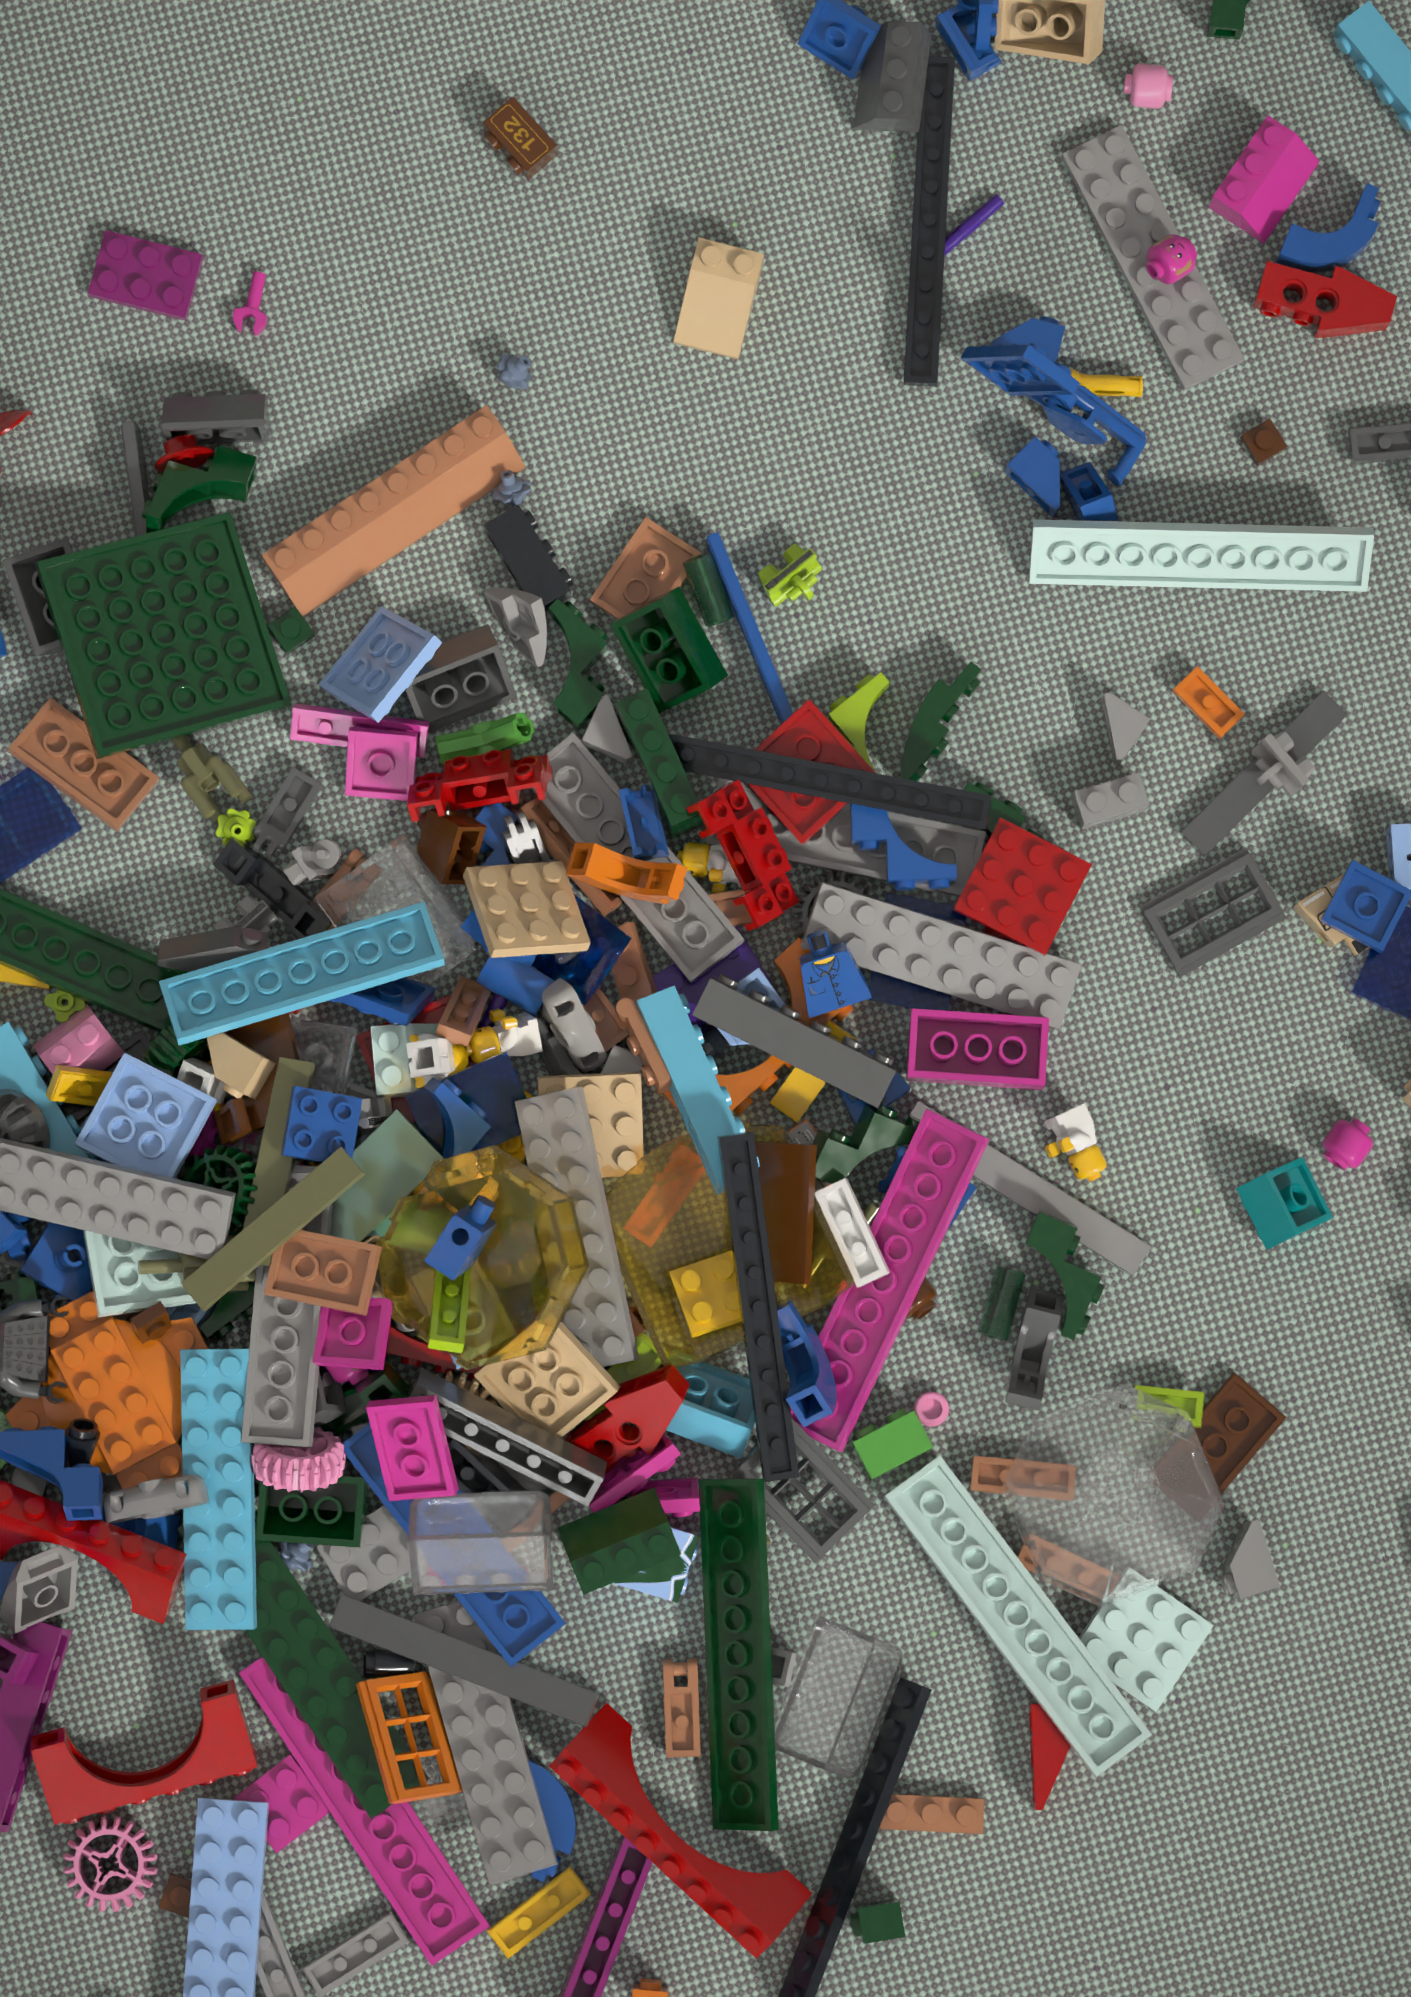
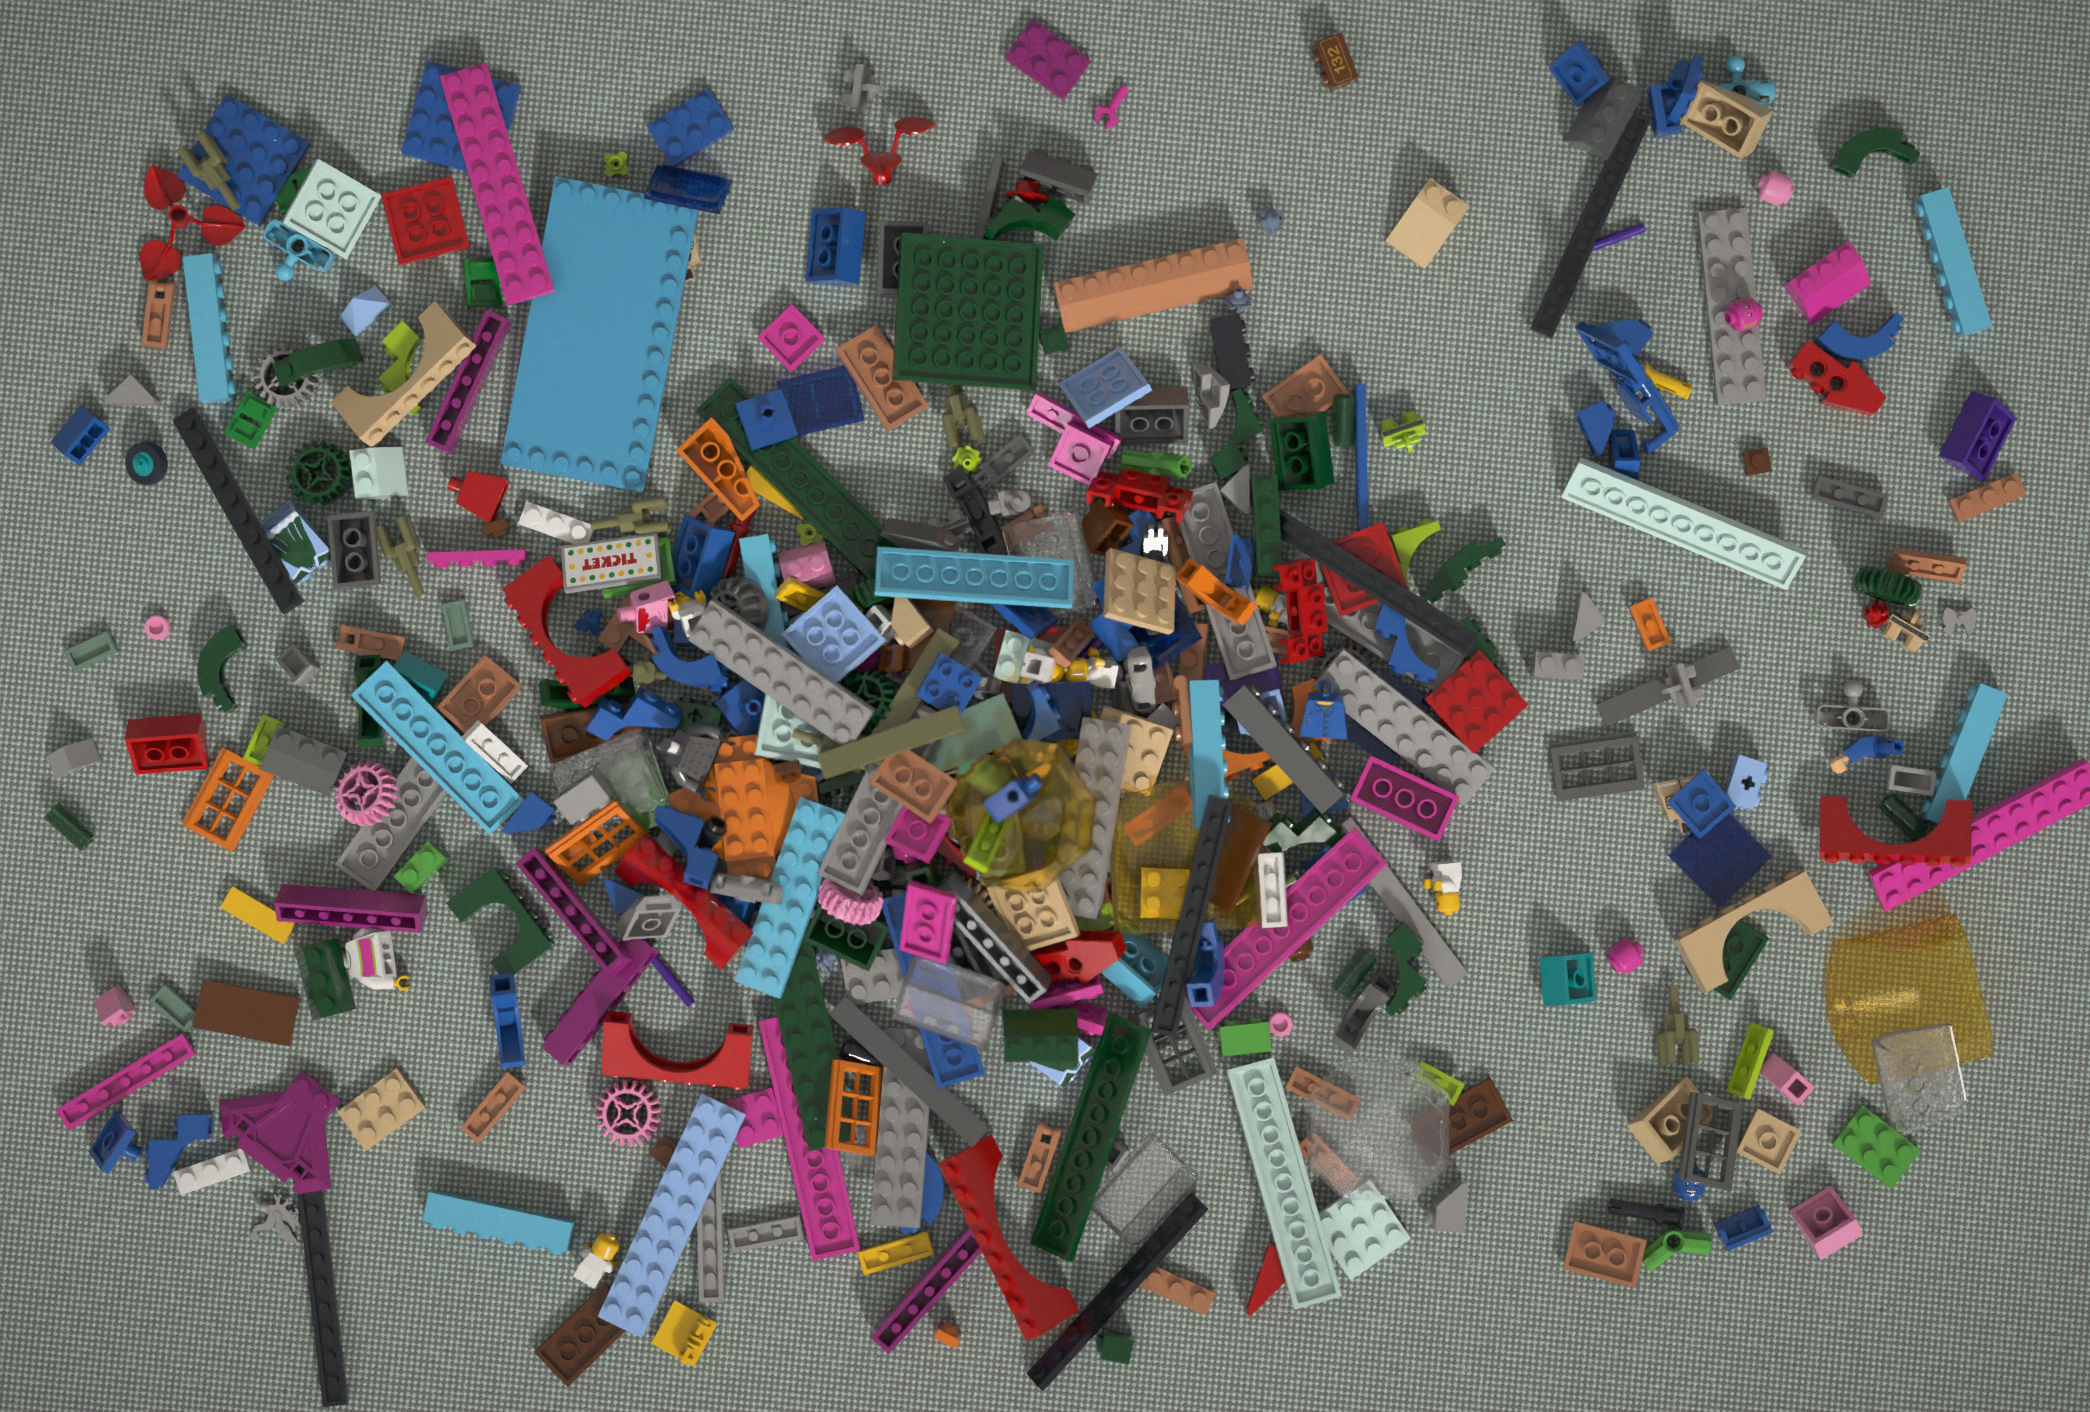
camera: 25 degrees right, 5 degrees up
(104, 1664) = (672, 981): none -> dark purple piece

